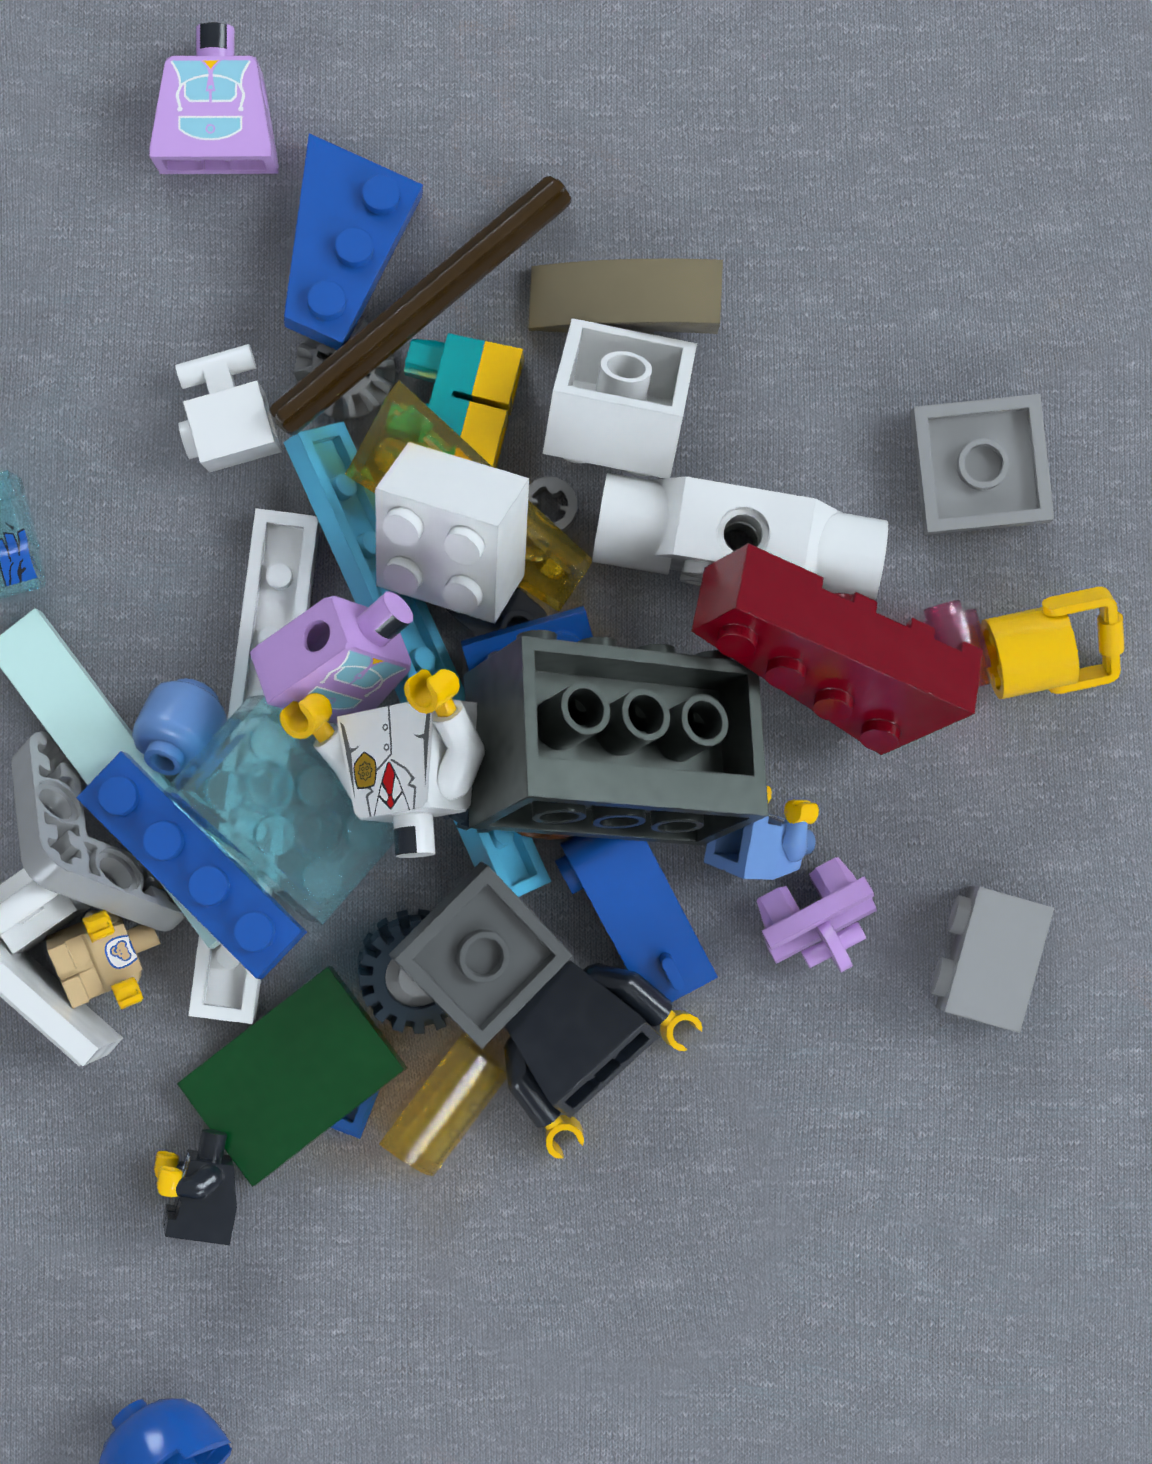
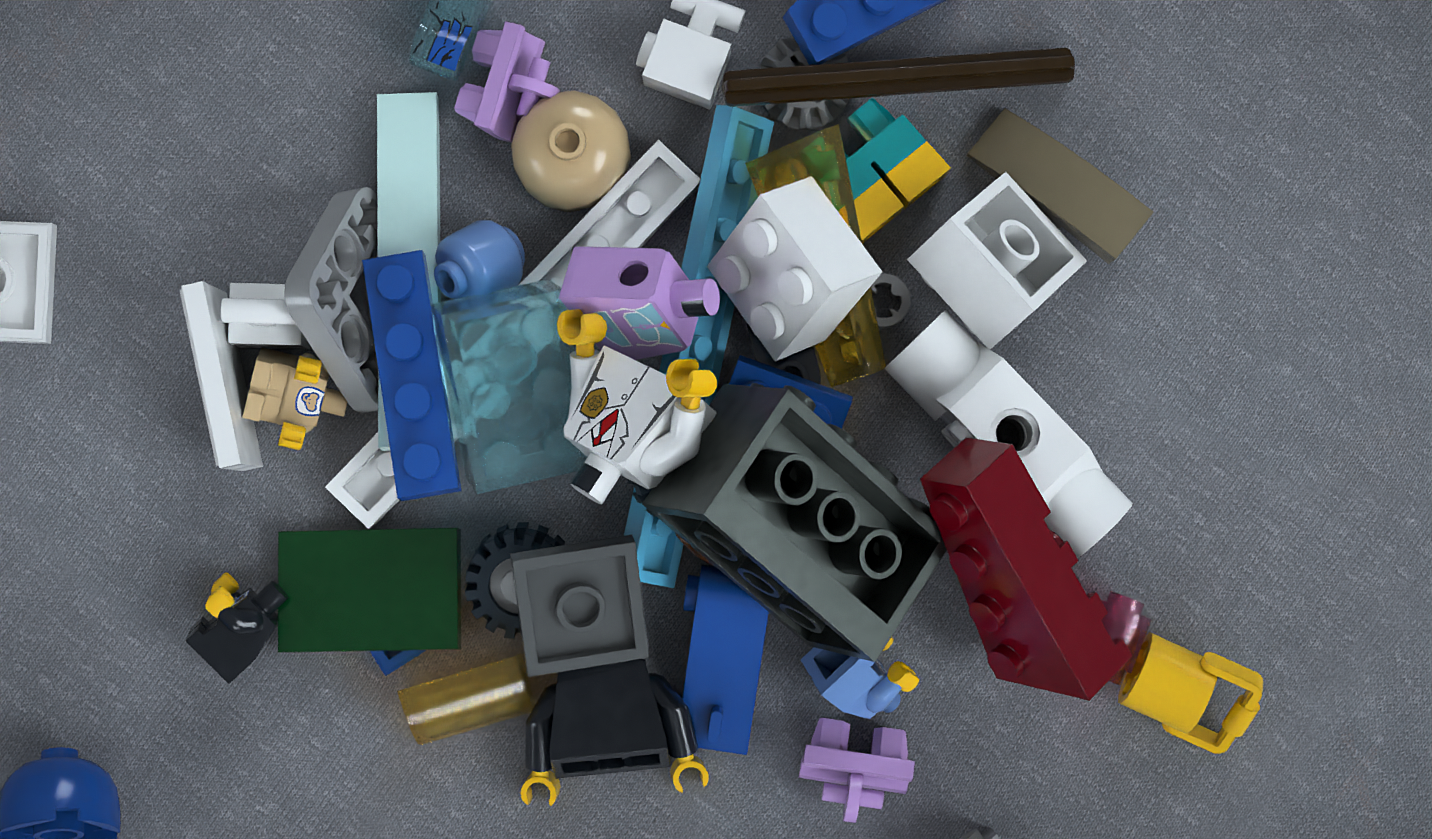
camera: 35 degrees right, 0 degrees up
(95, 553) = (512, 84): none -> lavender hips
(186, 573) = (570, 150): none -> tan cylinder
(982, 464) = (1238, 513): light grey plate -> none

